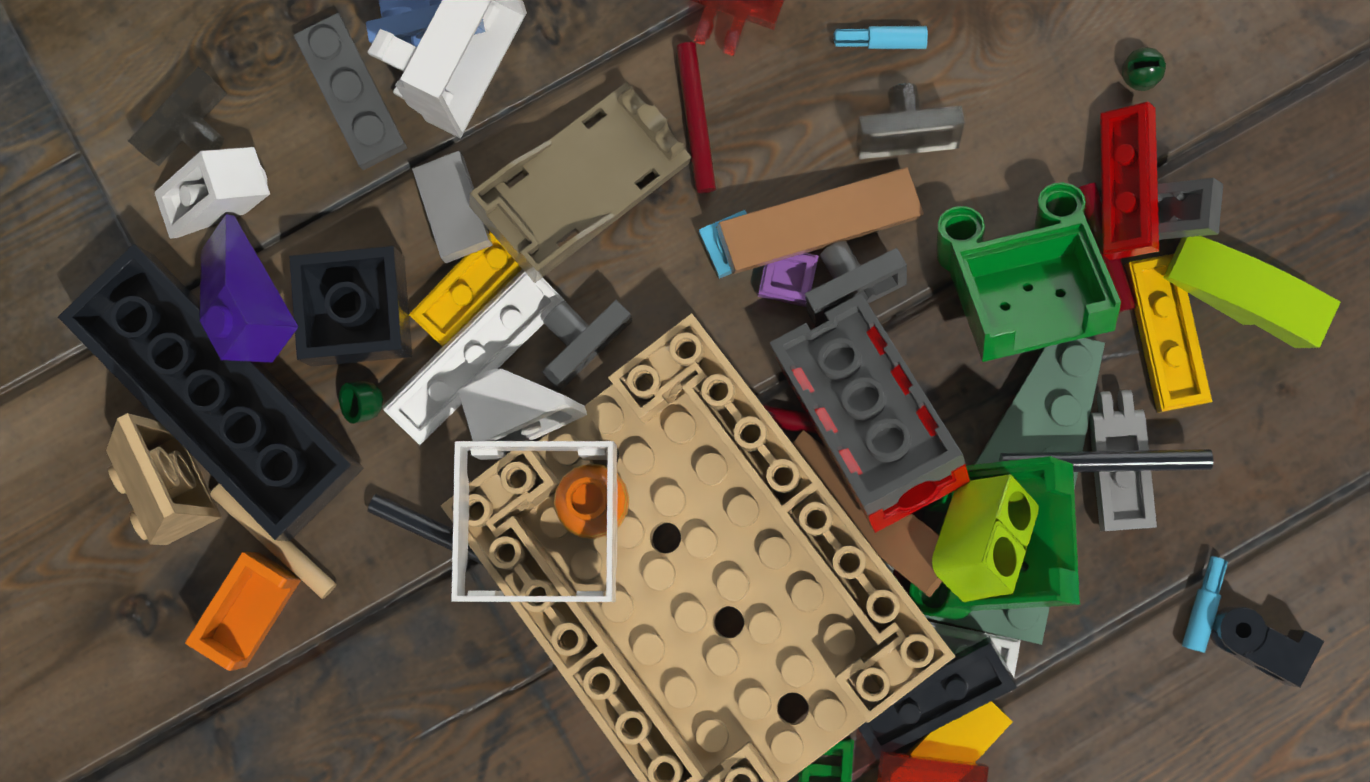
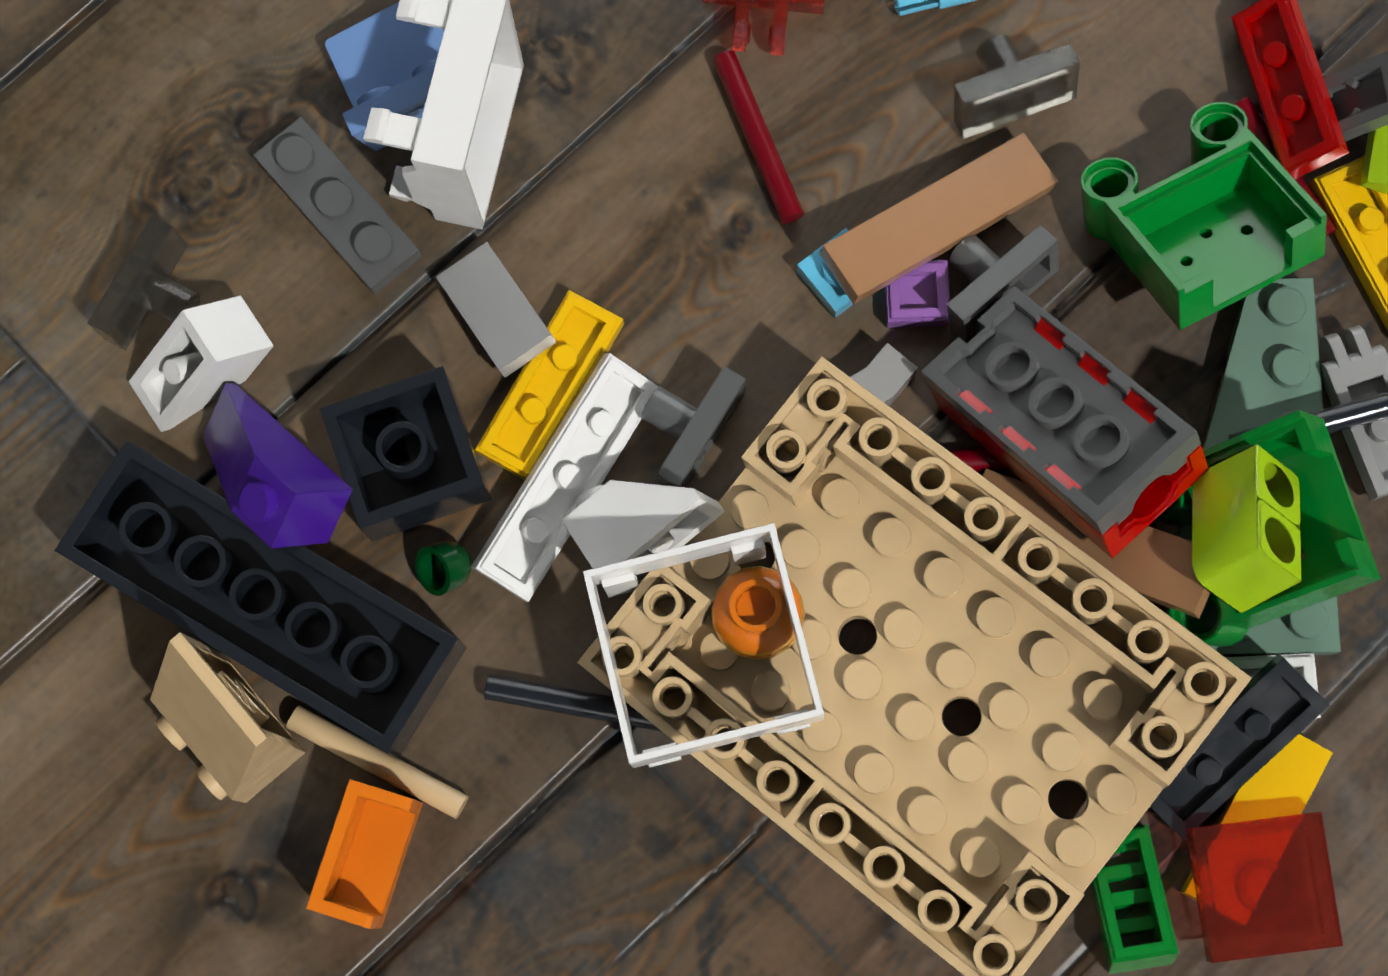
camera: 15 degrees left, 5 degrees down
(578, 181) = (640, 242): dark tan piece -> none
(741, 338) = (887, 374): none -> light grey piece

